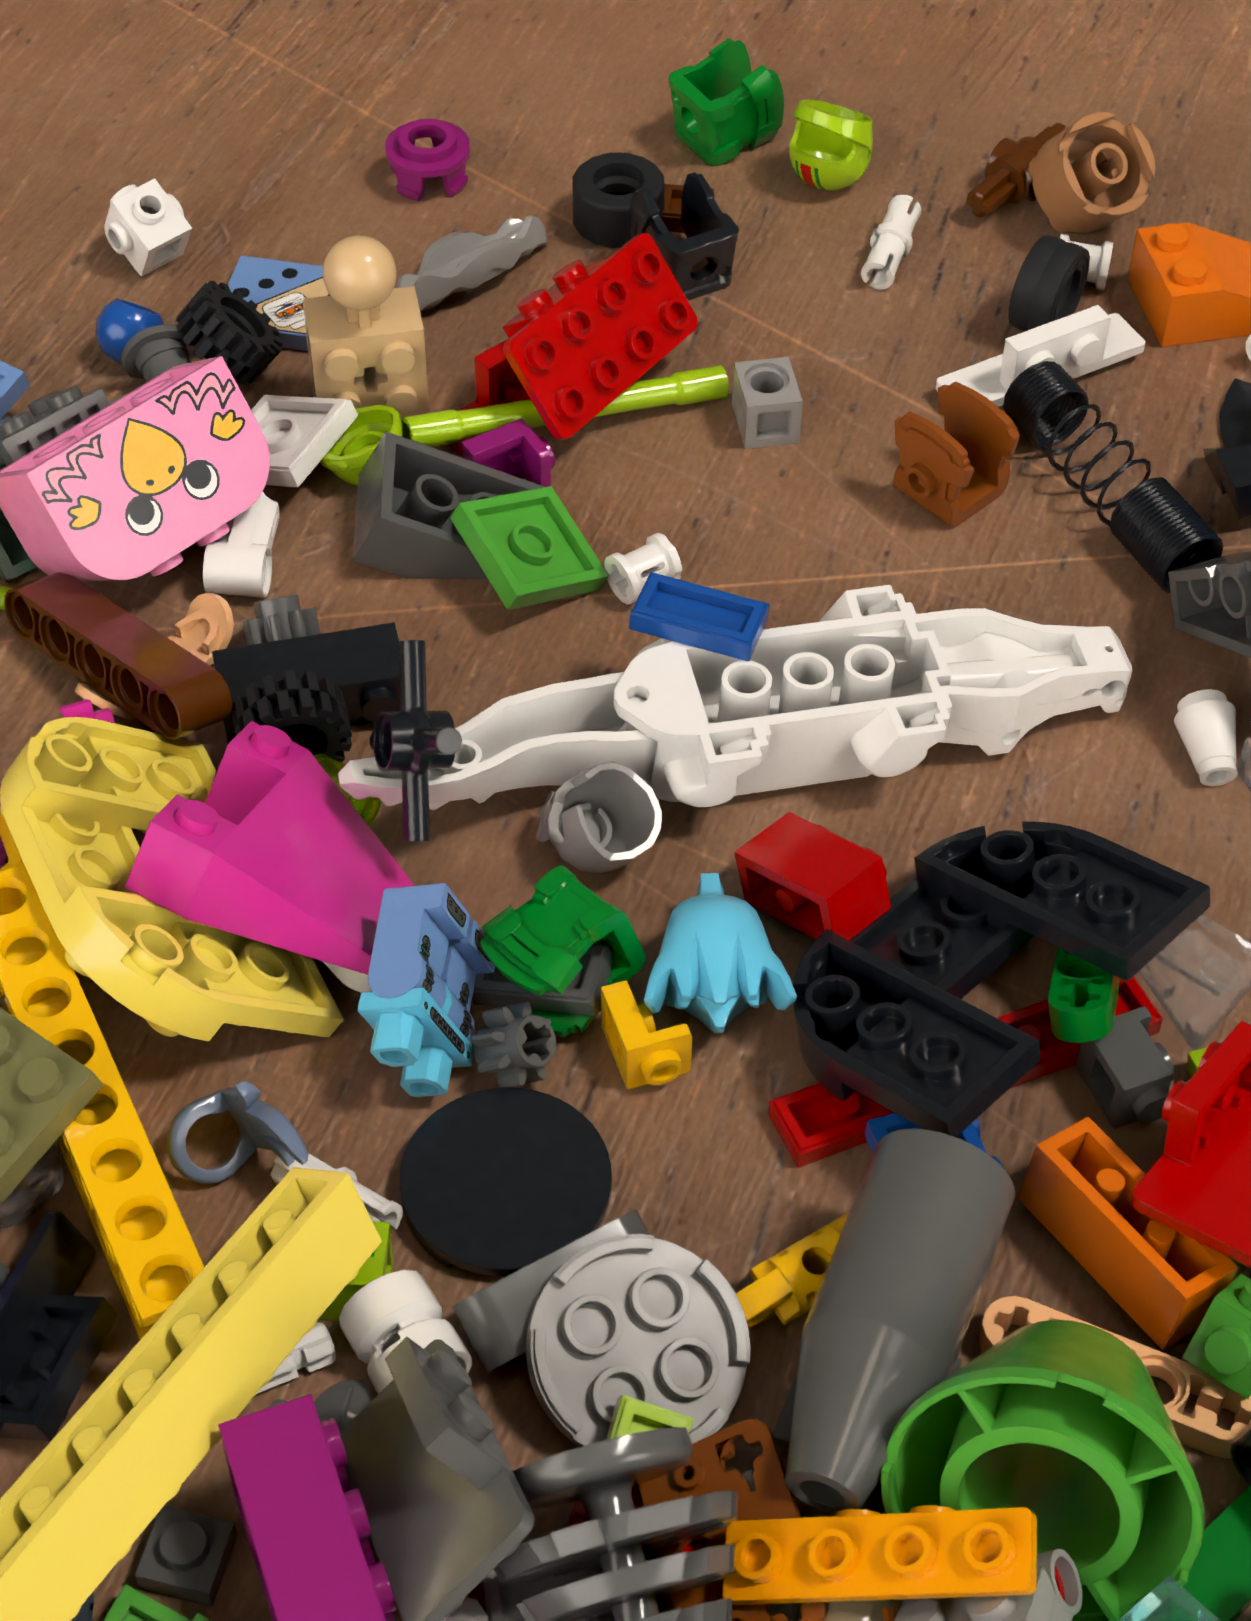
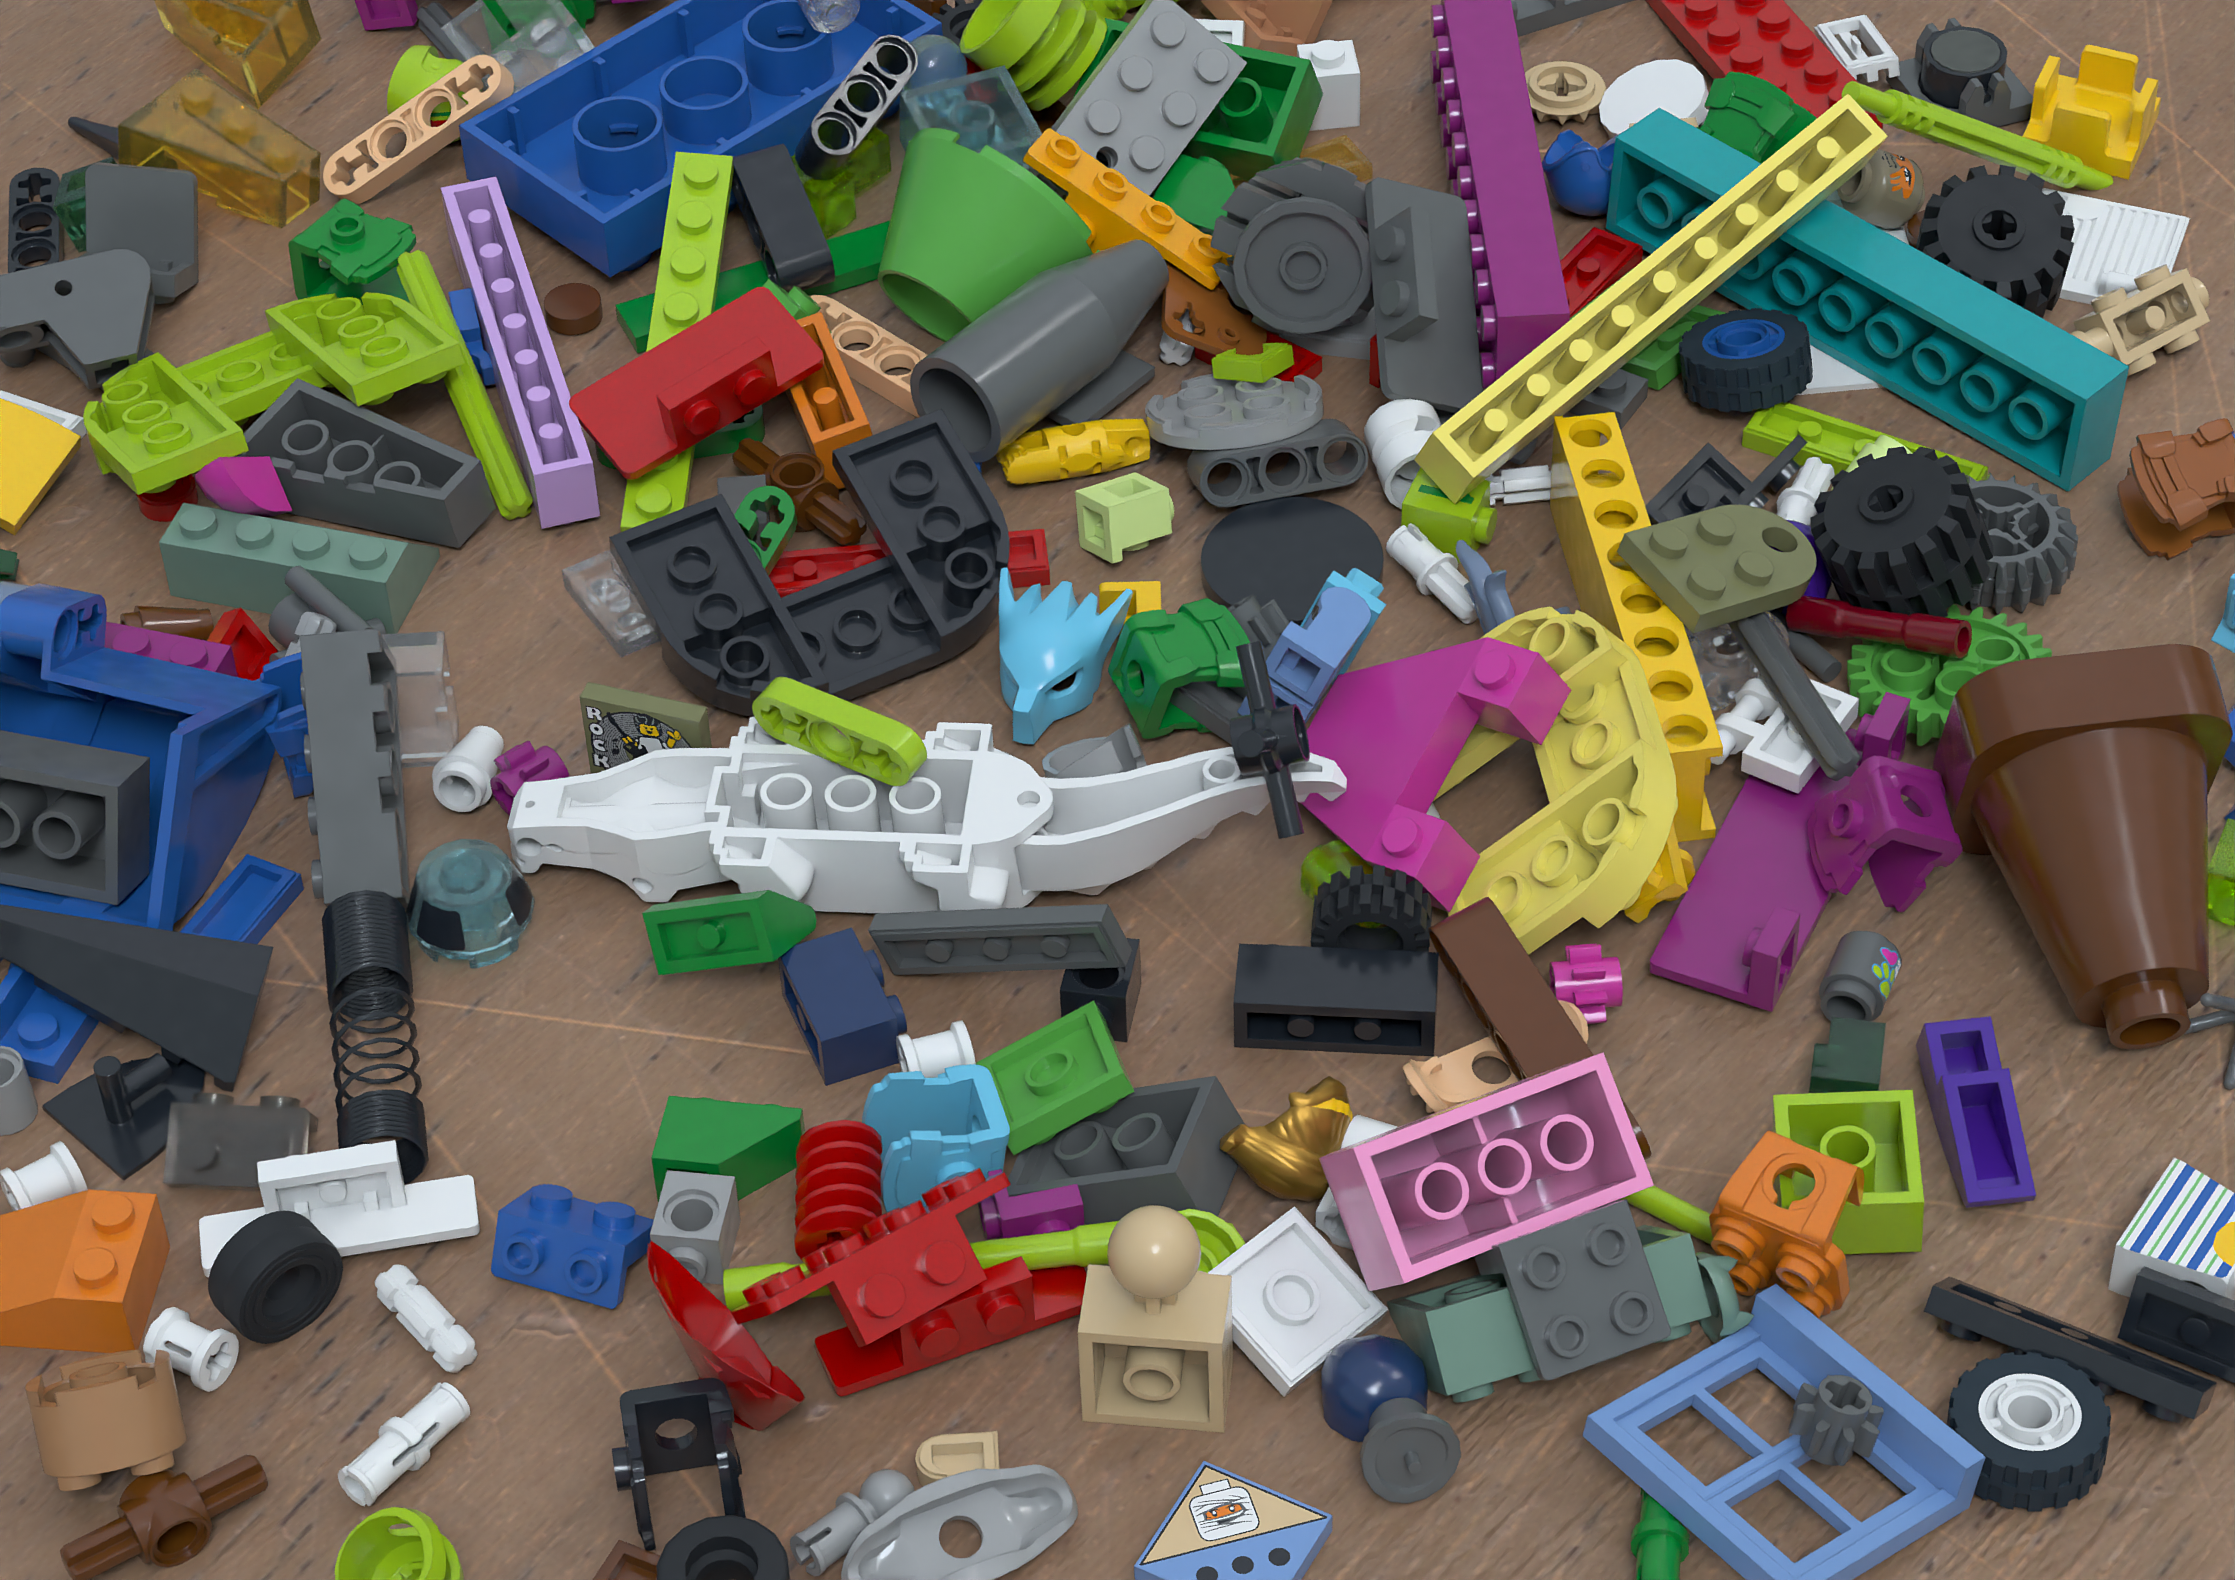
camera: 160 degrees left, 5 degrees down
(119, 323) = (1440, 1504): blue piece -> none
(229, 327) = (1315, 1436): black tyre -> none
(280, 620) = (1342, 1042): dark grey gear -> none
(312, 547) = (1287, 1150): none -> pearl gold hair
(487, 312) = (956, 1453): none -> tan tile
(525, 647) = (1111, 988): none -> black brick
(550, 255) = (837, 1530): none -> light grey pin
(570, 608) = (1001, 939): none -> dark grey tile
(606, 477) = (935, 1129): none -> medium azure piece
(668, 442) = (836, 1183): none -> red piece
(699, 616) = (934, 849): blue tile -> none
(716, 294) = (720, 1346): none -> red piece
(727, 1159) = (1122, 515): none -> yellowish green brick
(745, 566) = (841, 1005): none -> dark blue brick
(778, 460) = (728, 1140): none -> green slope
(813, 878) = (923, 678): red brick -> none
(856, 383) = (569, 1244): none -> blue bracket
(864, 563) = (725, 930): none -> green tile
(864, 677) = (871, 741): none -> lime beam
(933, 322) = (425, 1318): none -> white axle
(964, 456) = (566, 1080): dark orange piece -> none
(1043, 743) = (631, 724): none -> tile
(1084, 1099) = (804, 481): none -> reddish brown axle
(1123, 592) = (469, 903): none -> clear light blue cone
(1140, 721) = (524, 765): none -> magenta gear
(1161, 401) = (221, 1142): none -> clear smoke bracket

